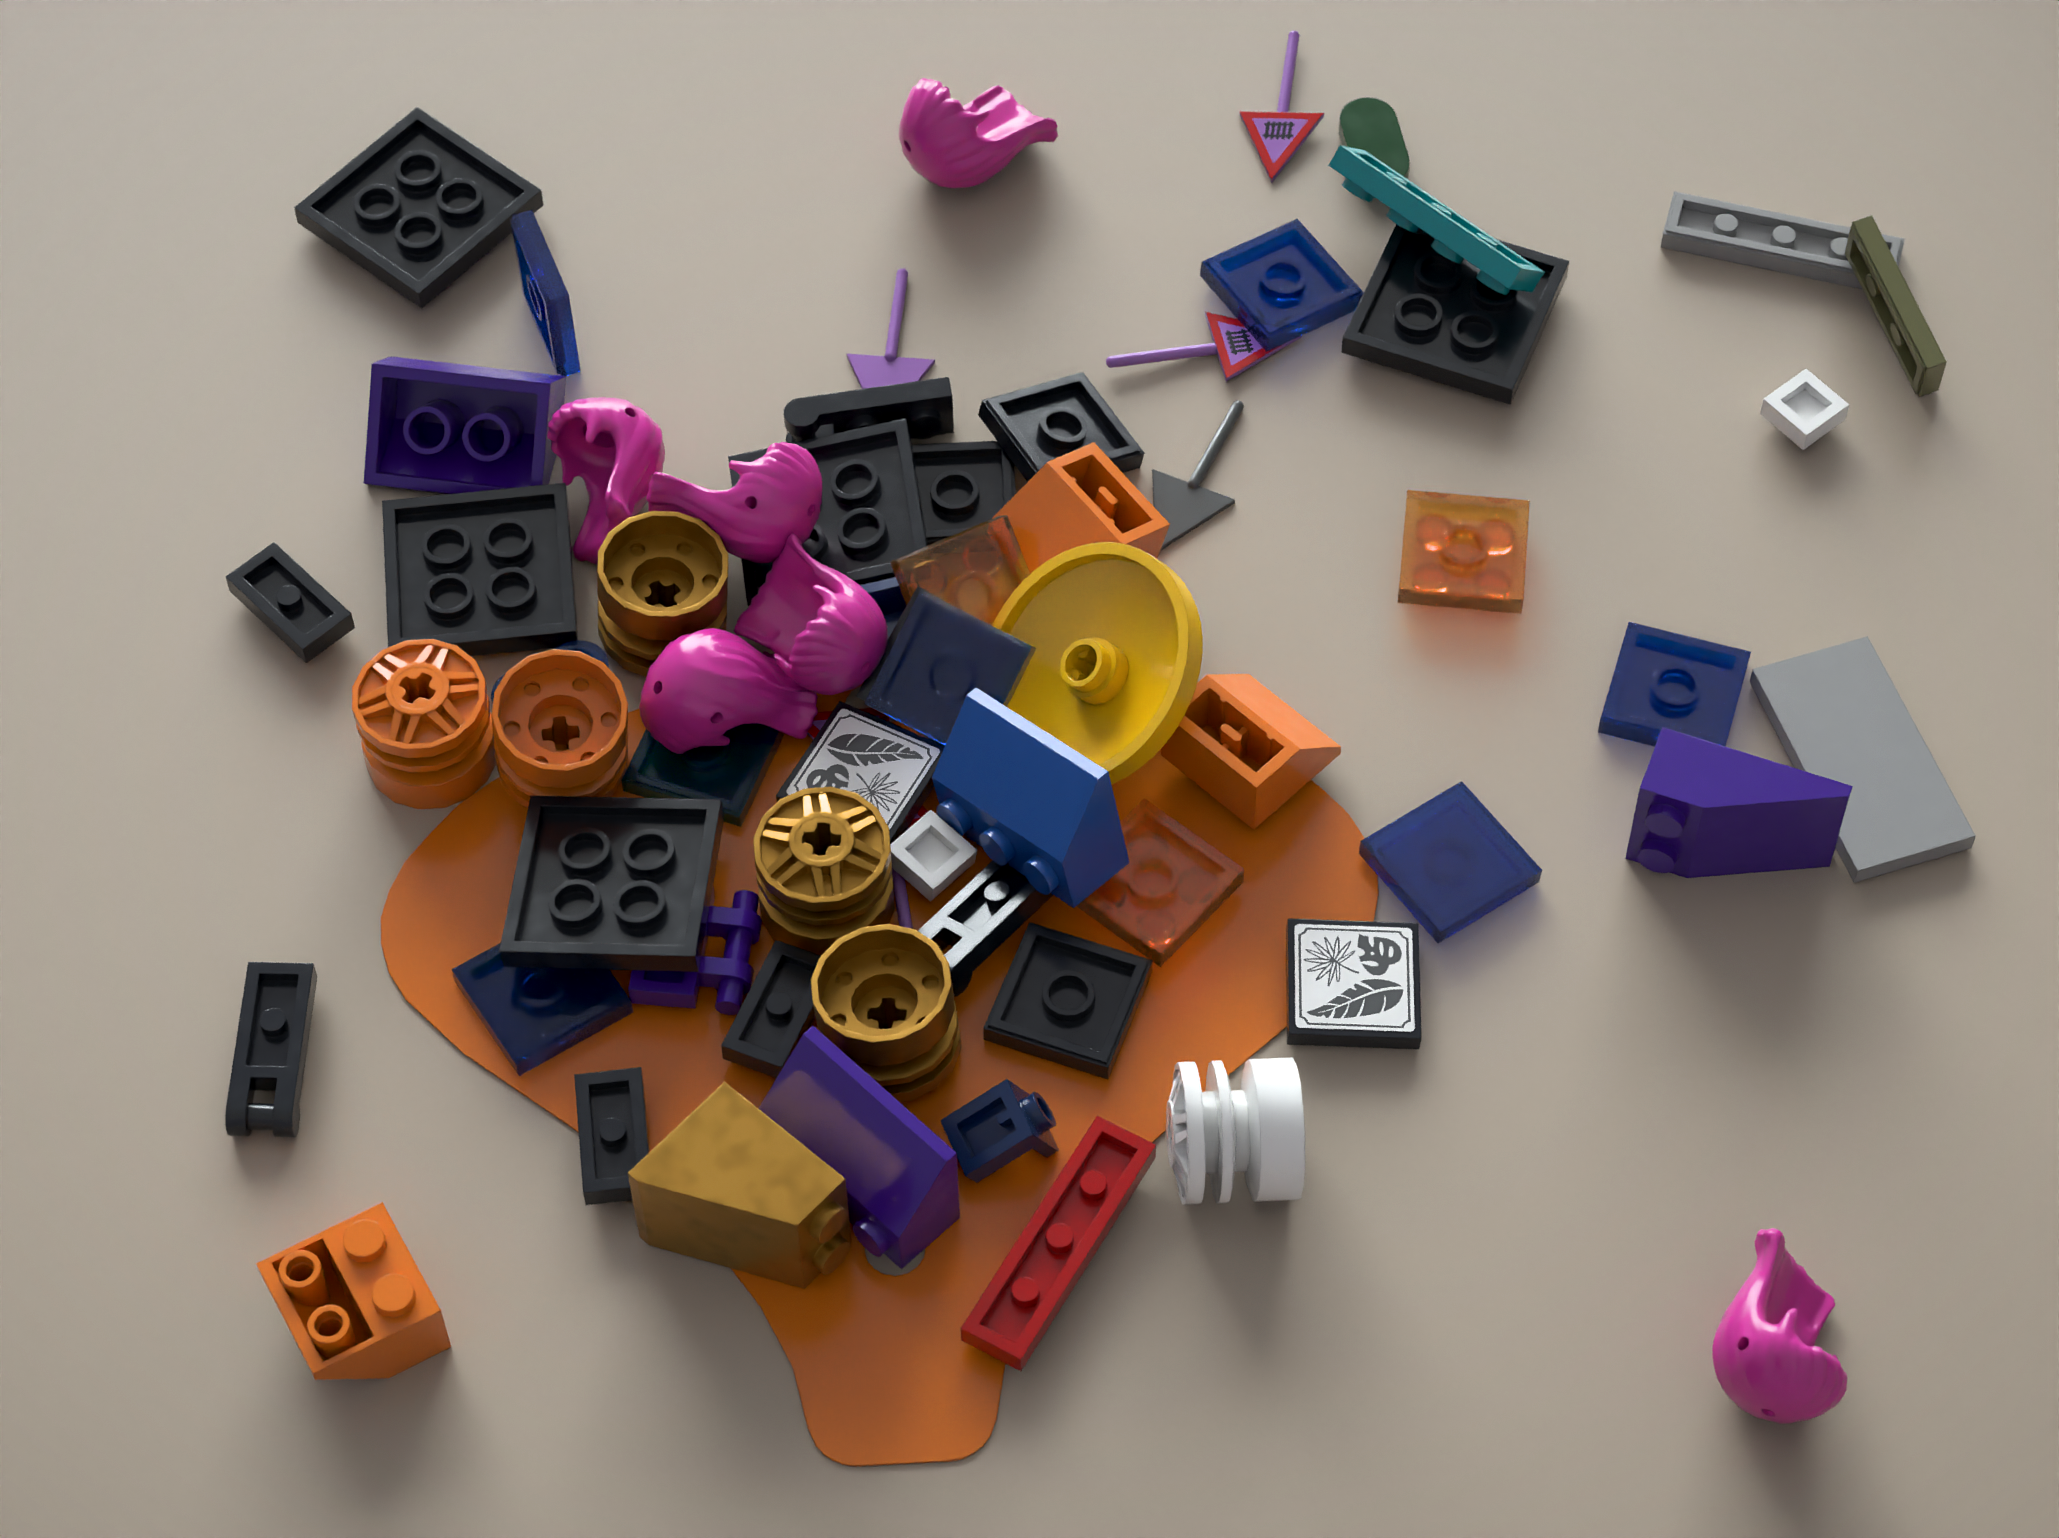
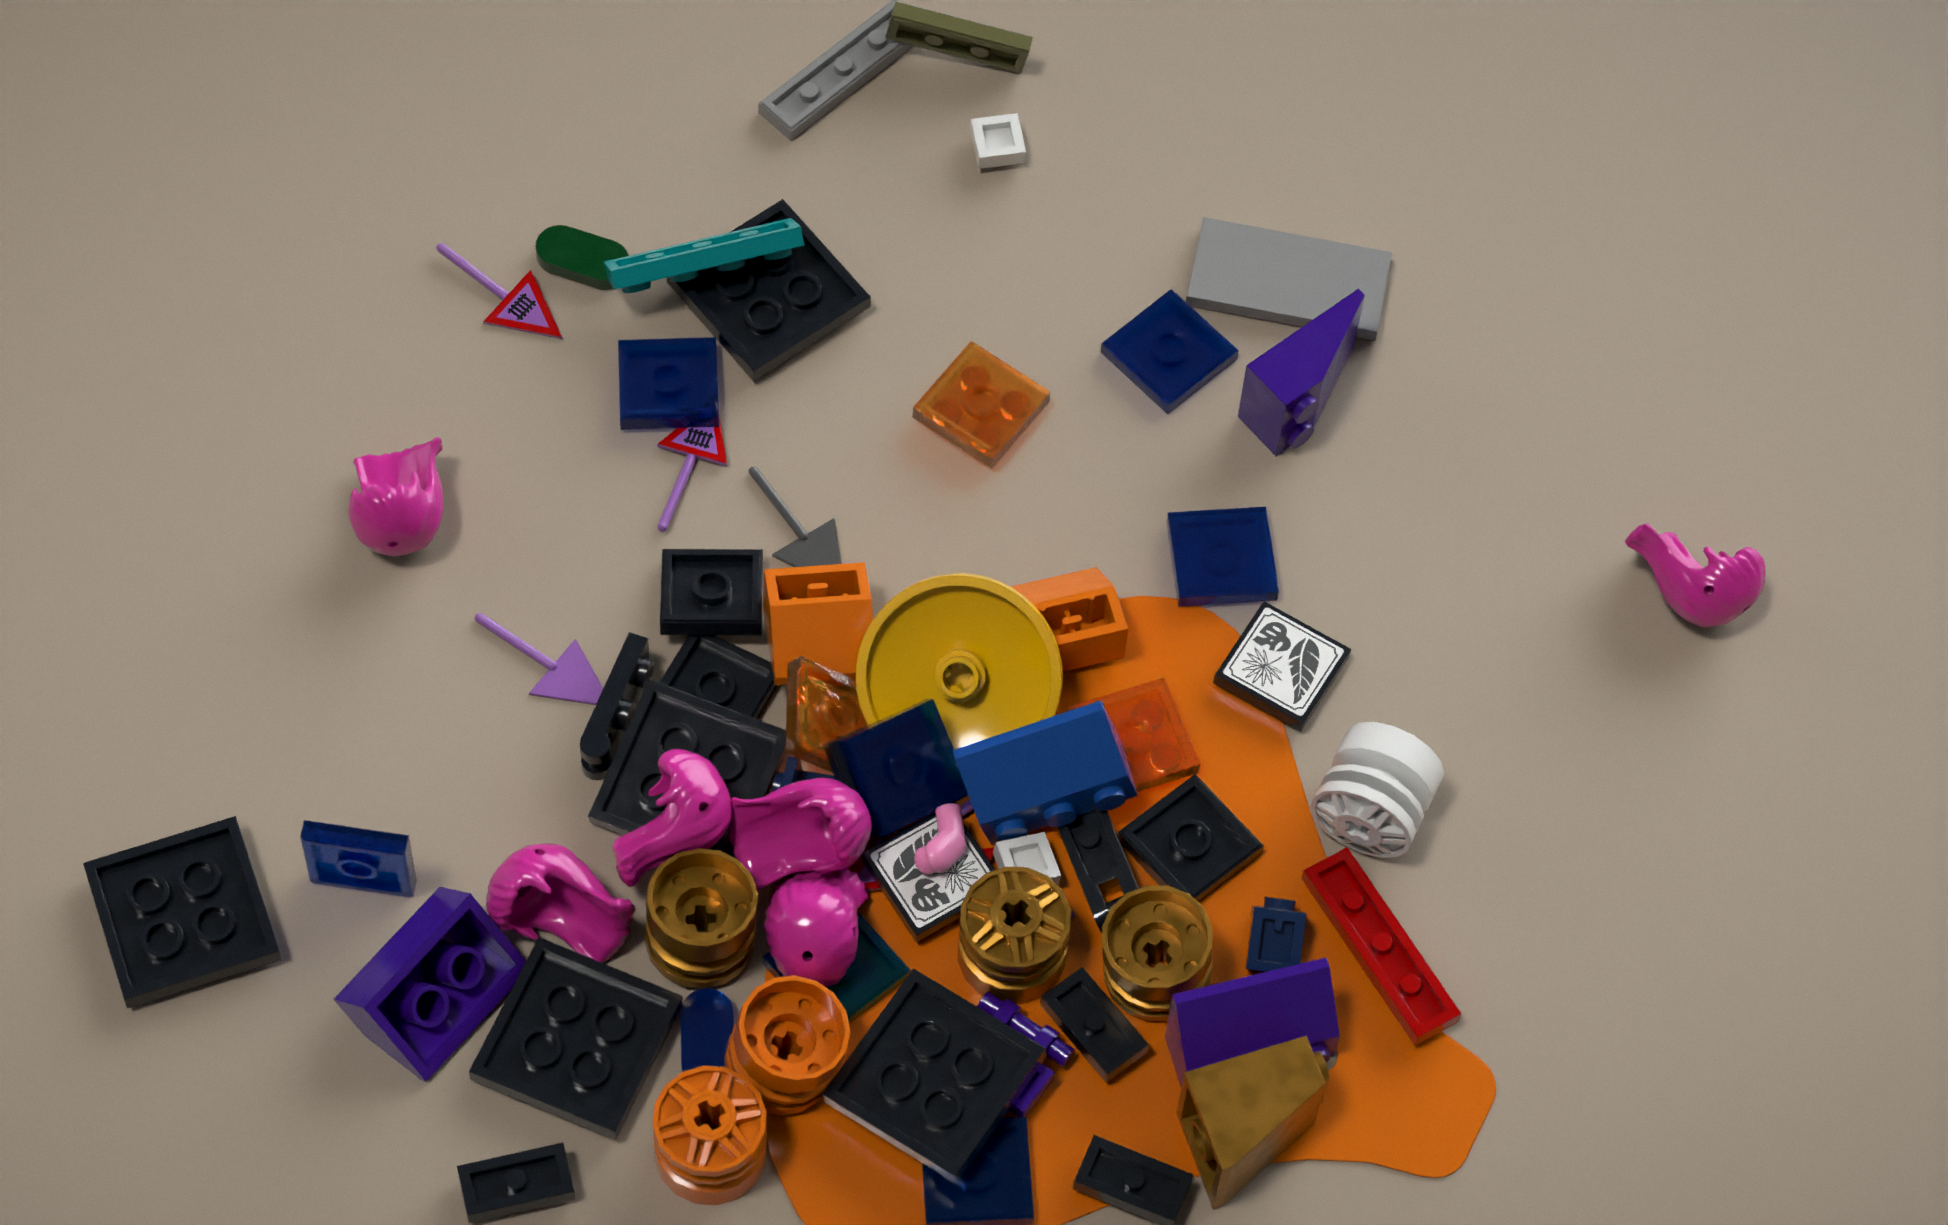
camera: 65 degrees left, 5 degrees up
(892, 762) = (947, 845): none -> bright pink arm

